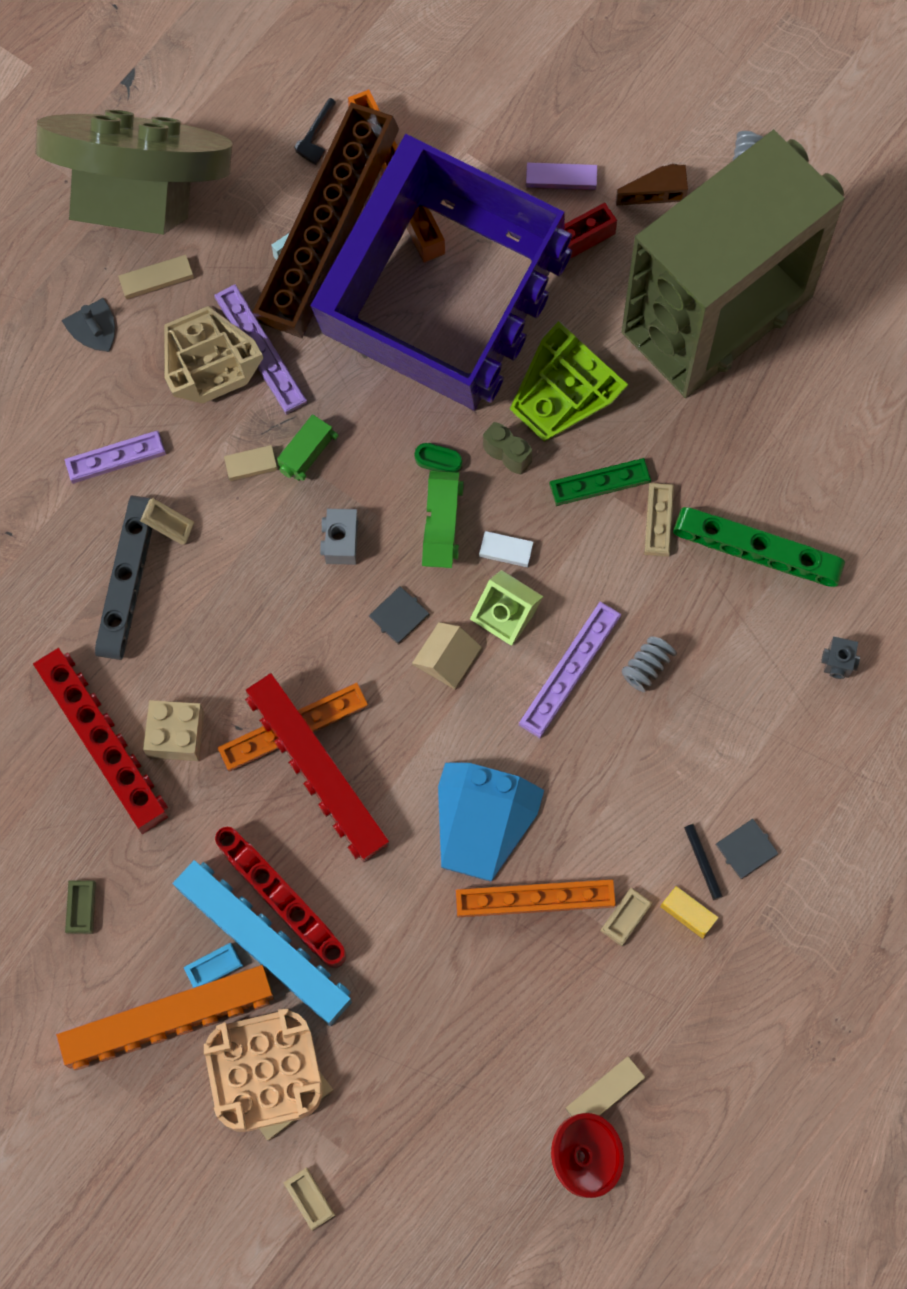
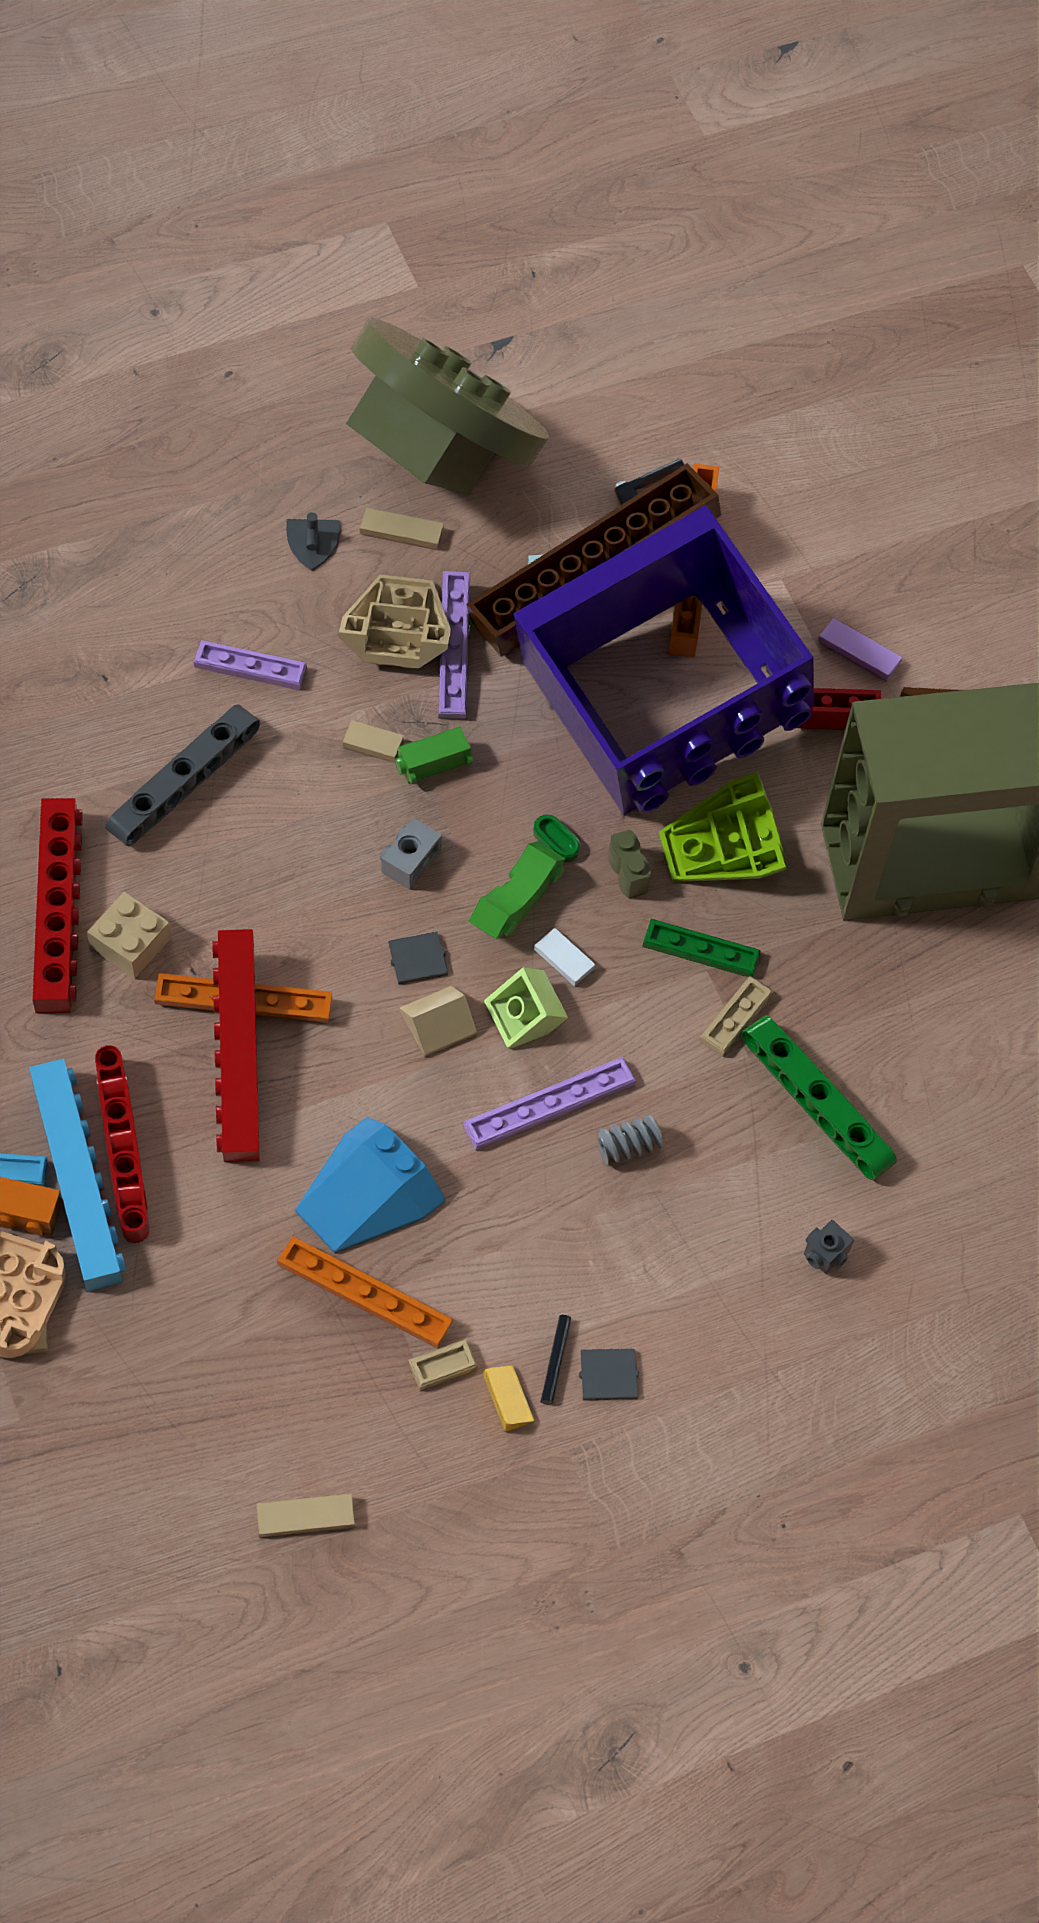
camera: 25 degrees right, 10 degrees down
(167, 521) = (256, 746): tan tile -> none
(598, 1151) = (261, 1551): red dish -> none

